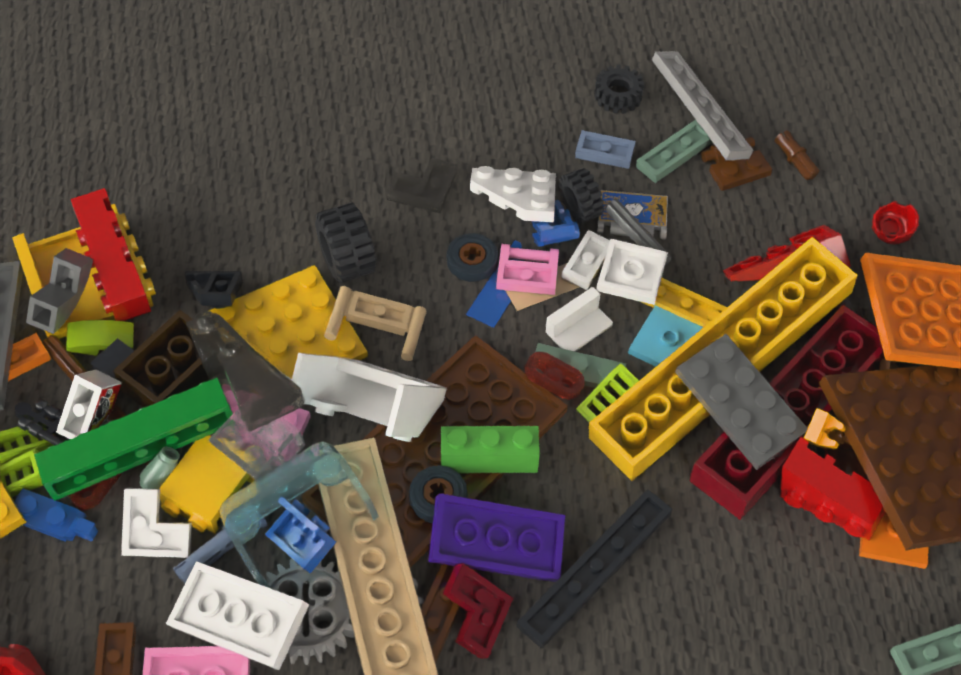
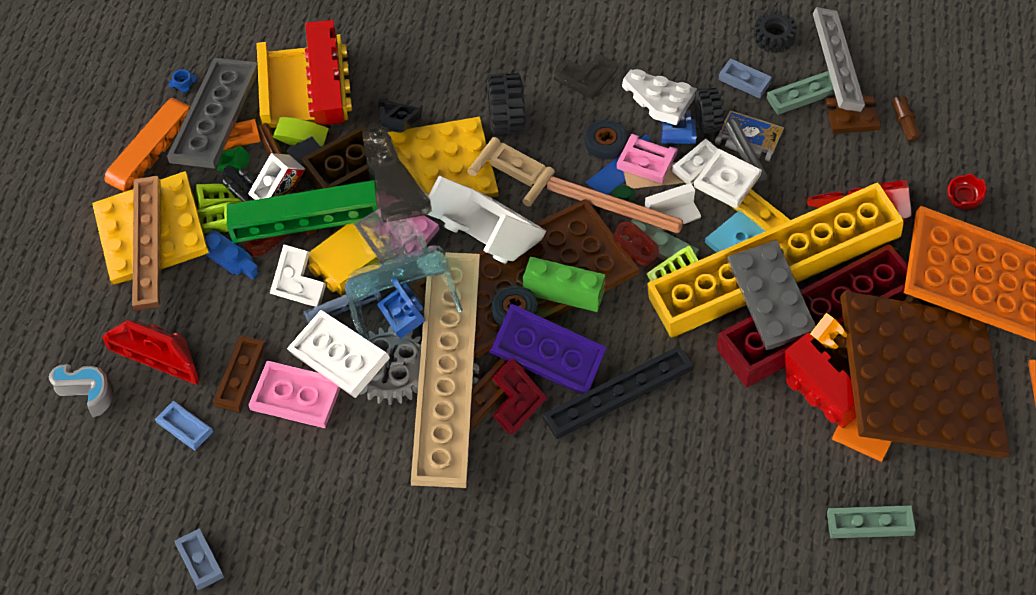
camera: 20 degrees right, 0 degrees up
(23, 388) = (235, 158): none -> green slope
(57, 300) = (275, 97): dark grey brick -> none
(159, 468) = (314, 237): sand green cone -> none
(512, 334) = (615, 204): none -> nougat axle
(516, 320) = (624, 192): none -> dark green plate

